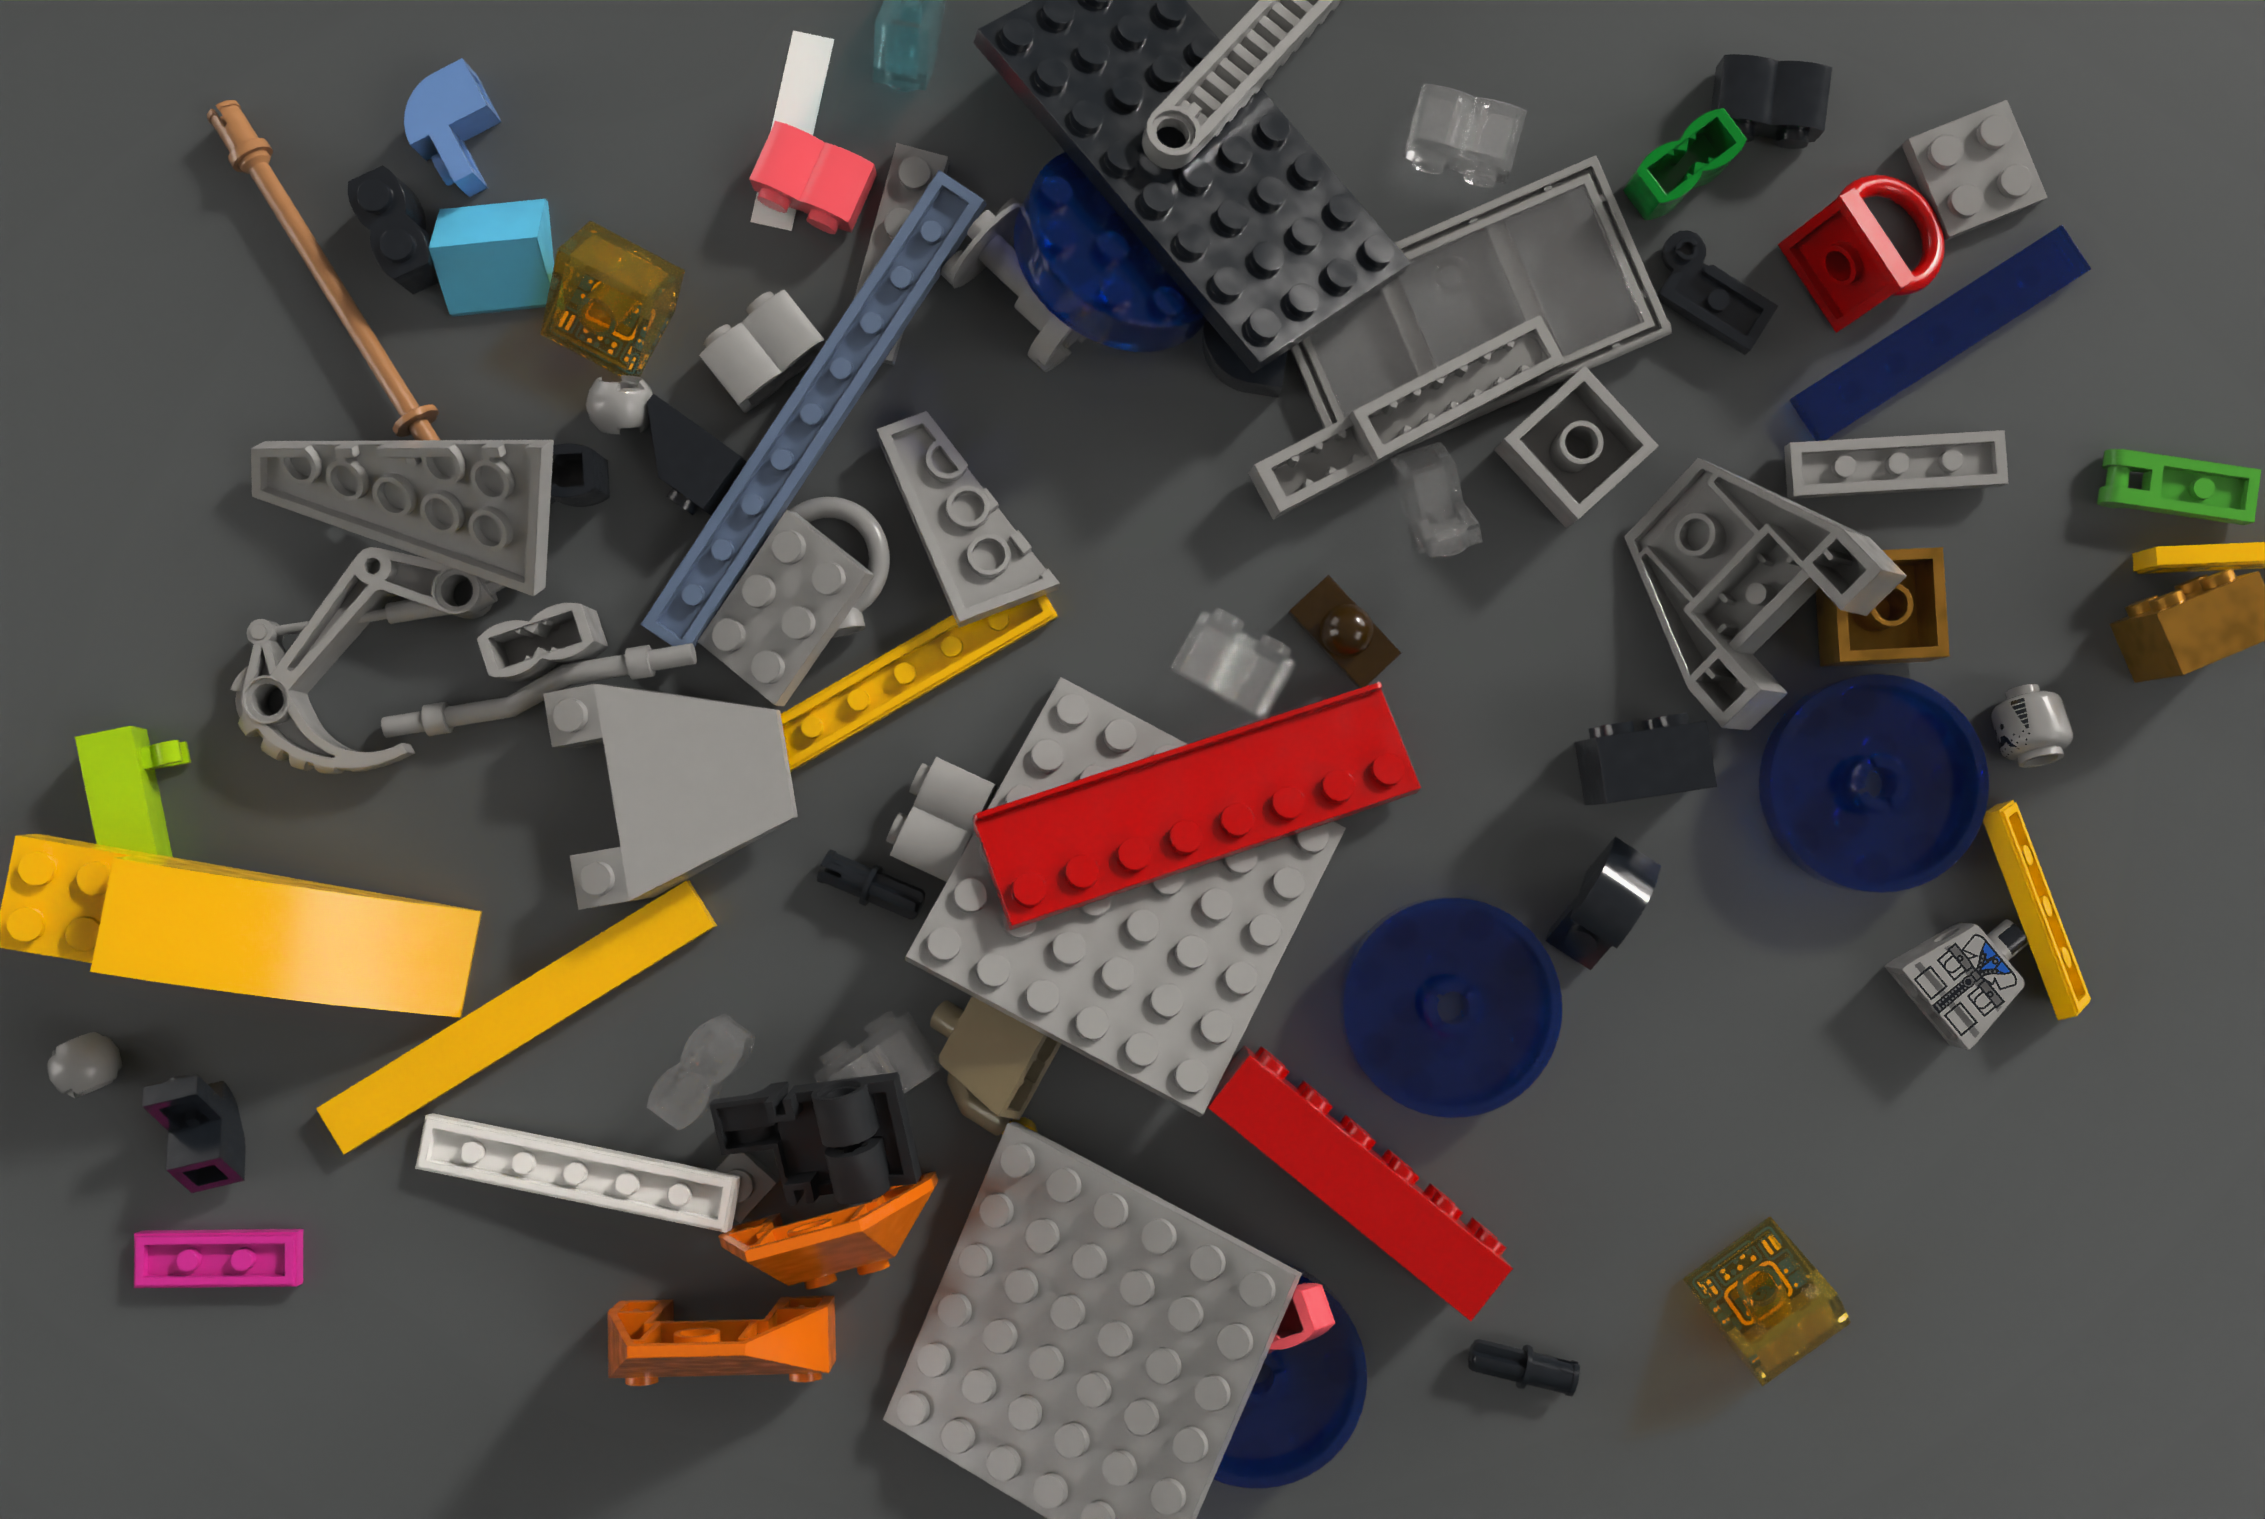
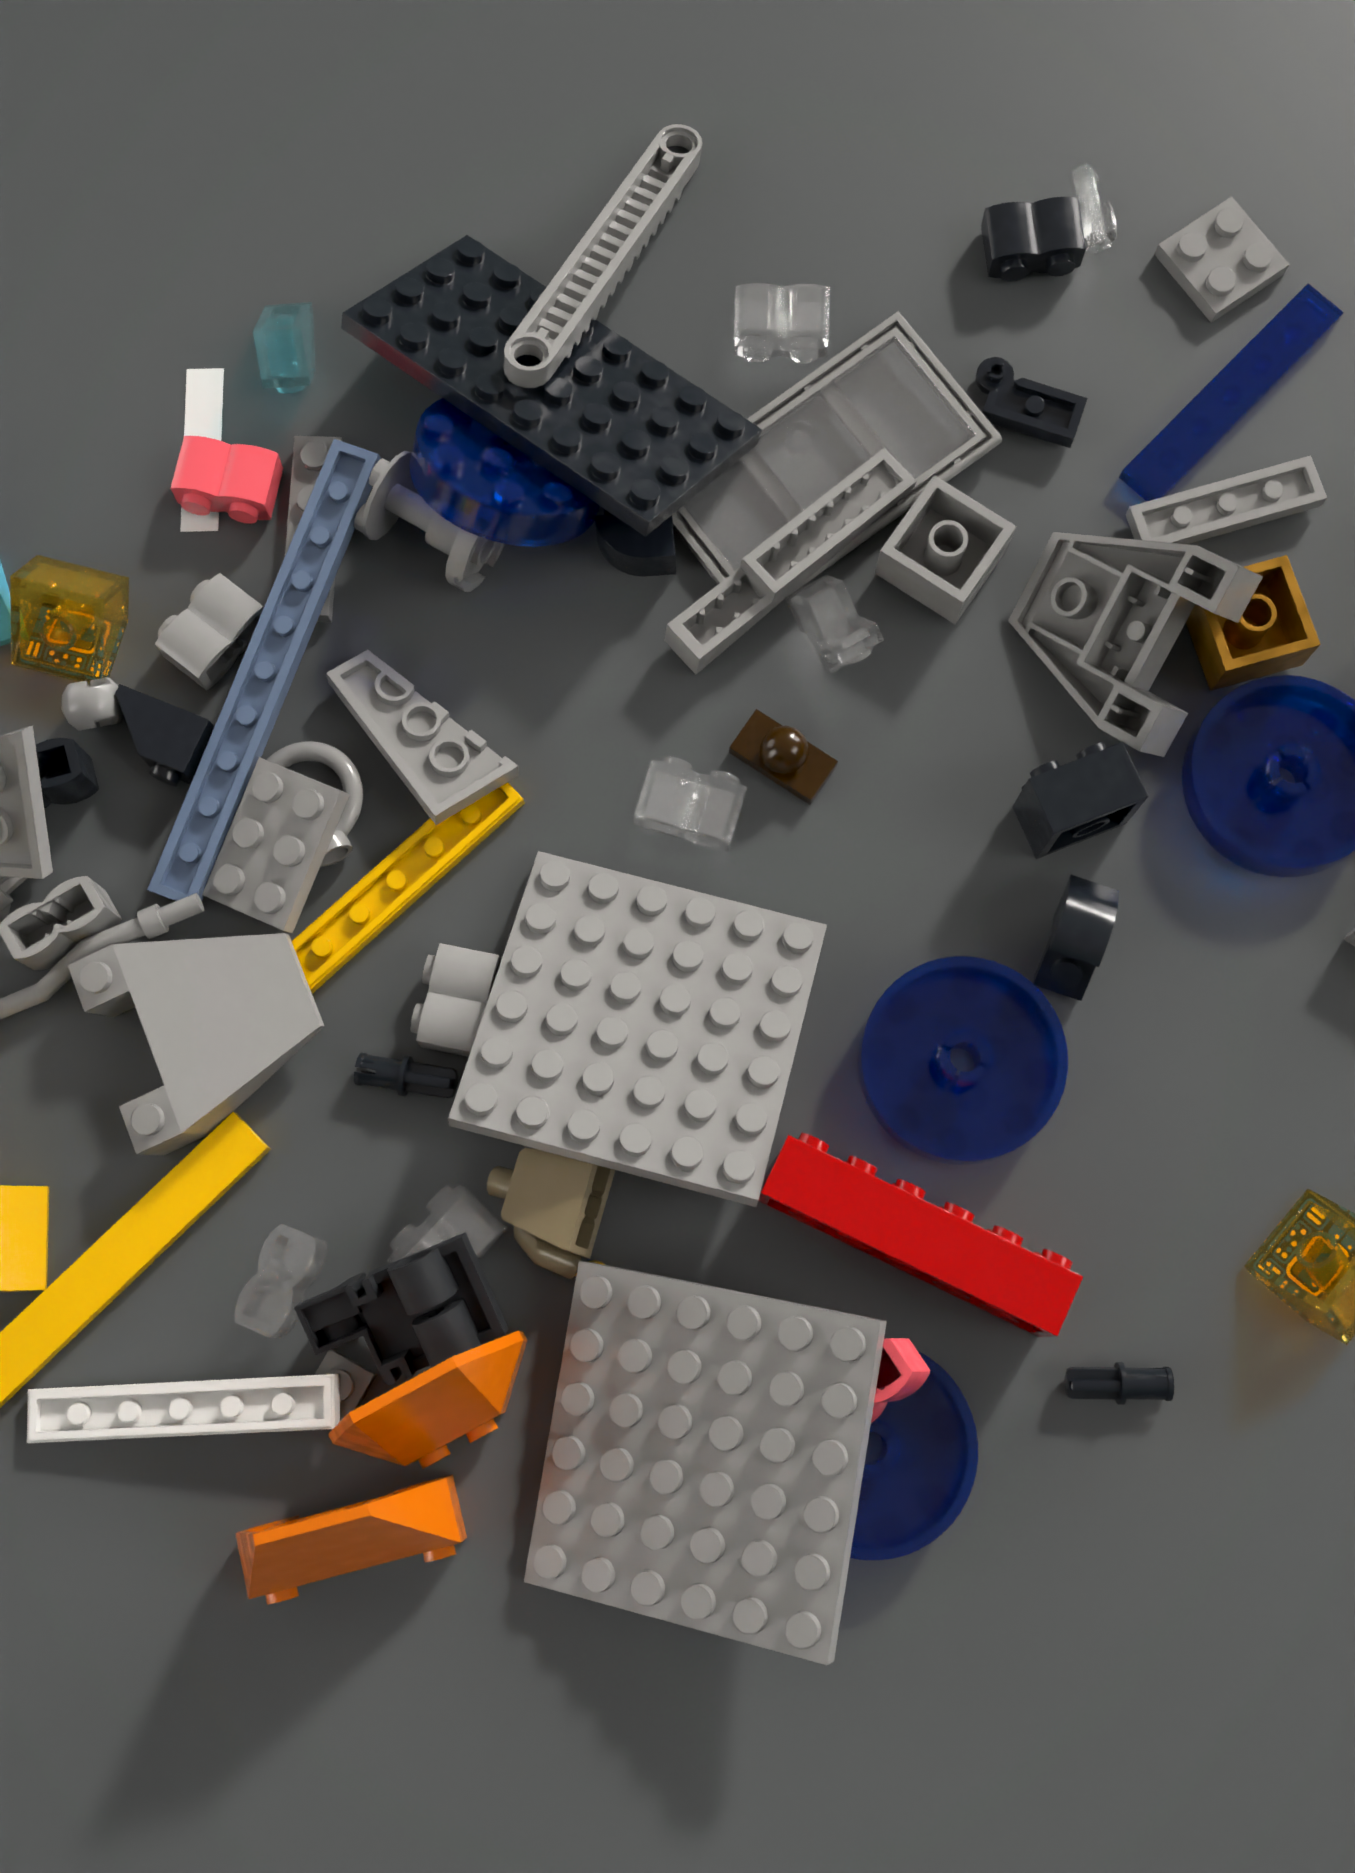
camera: 10 degrees left, 10 degrees down
(1194, 805) = (681, 929): red plate -> none
(1684, 164) = (975, 301): green brick -> none
(1848, 87) = (1097, 218): none -> clear tile
(1851, 260) = (1141, 345): red tile -> none

